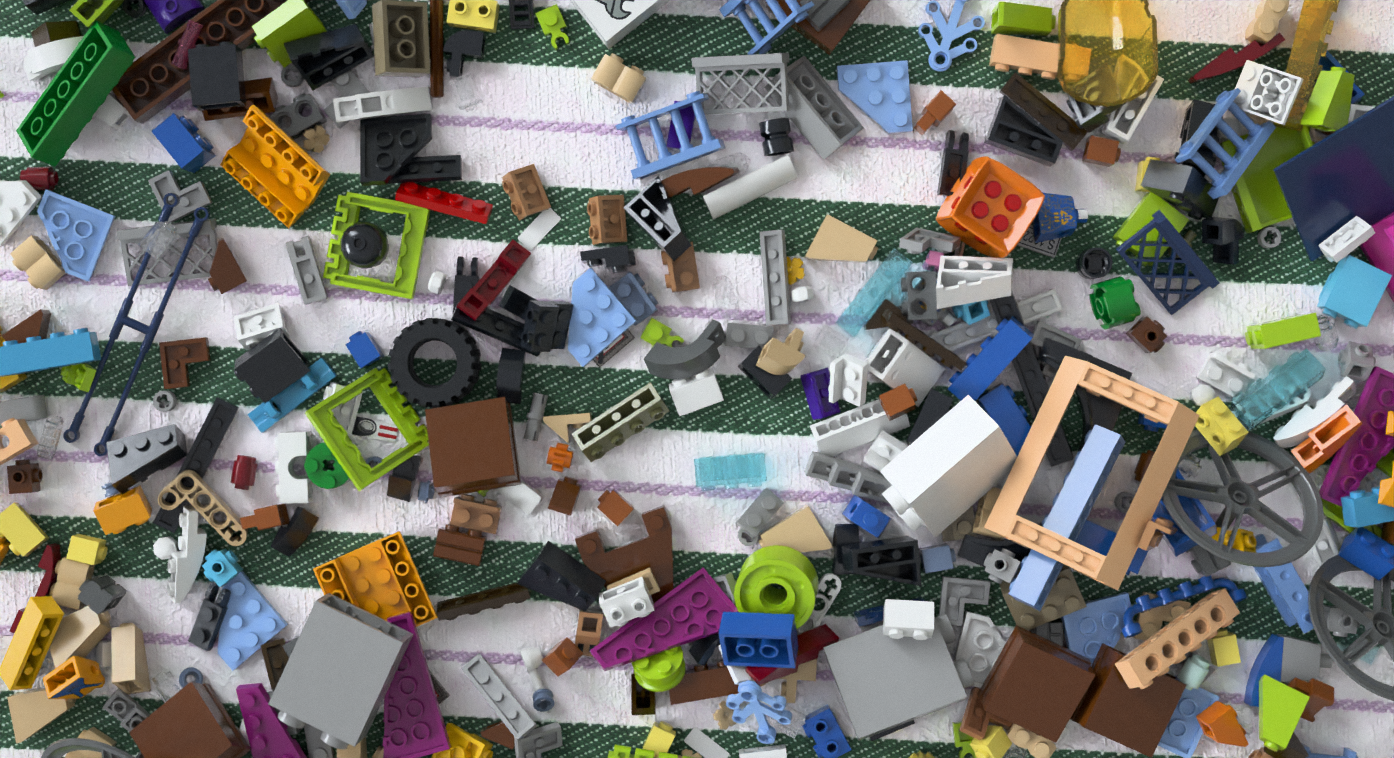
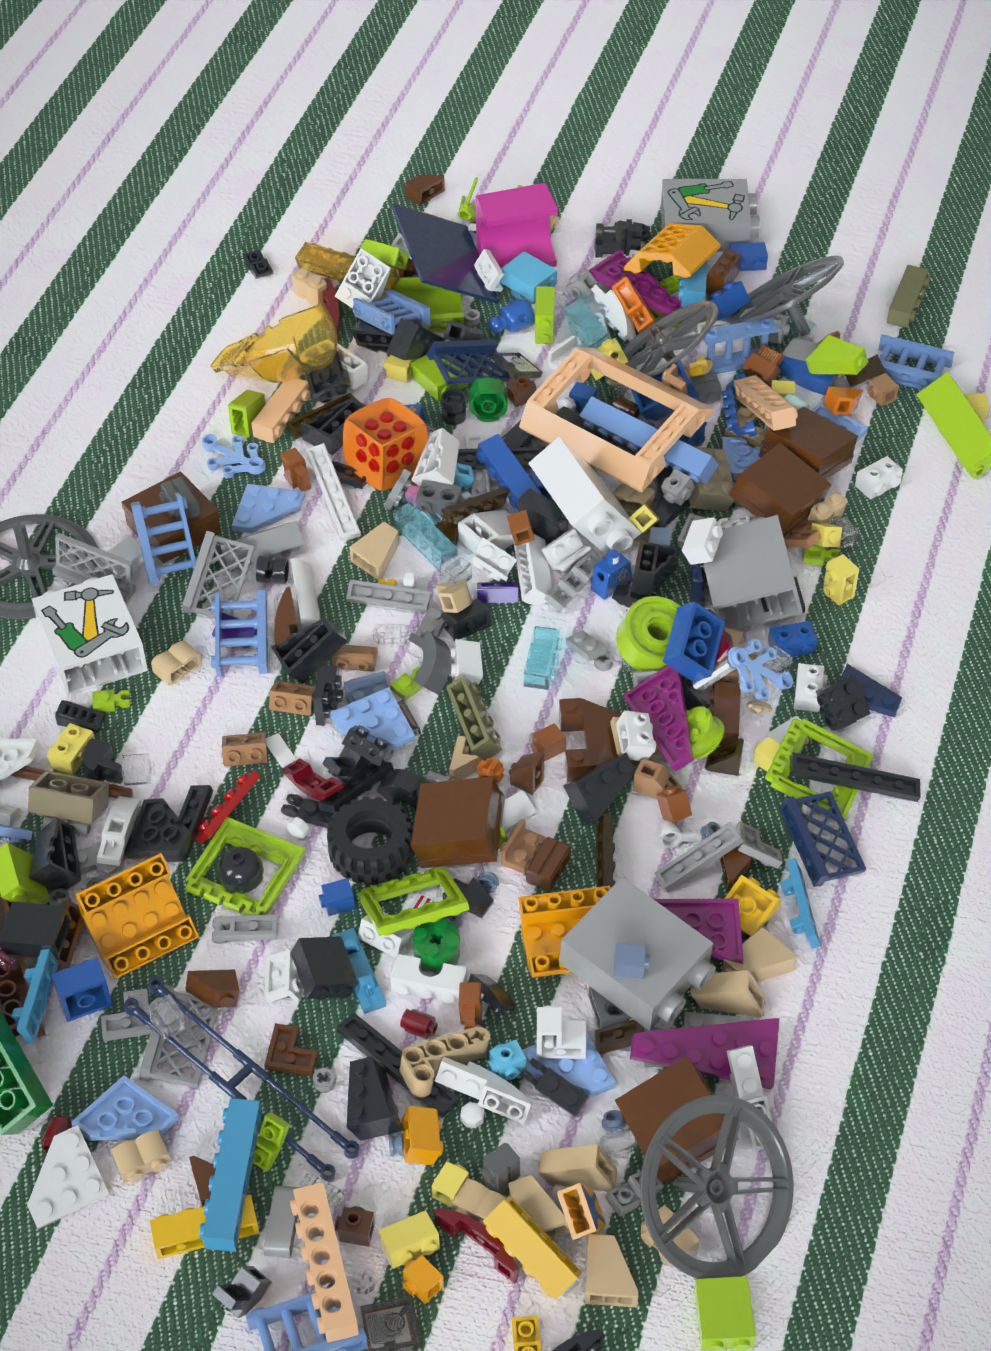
camera: 75 degrees left, 40 degrees down
(129, 112) = (40, 981): none -> dark azure hinge
(250, 613) = (559, 1037): none -> white brick
(302, 675) = (630, 960): none -> sand blue brick
(798, 532) = (605, 622): tan slope -> none
(916, 164) = (333, 492): none -> white tile
(953, 537) = (644, 518): none -> light yellow brick
(1101, 151) = (368, 389): dark orange brick -> none
(1188, 318) = (516, 365): none -> clear smoke tile
(1265, 619) = (764, 364): none -> dark orange piece
(1275, 293) = (514, 317): none -> blue piece

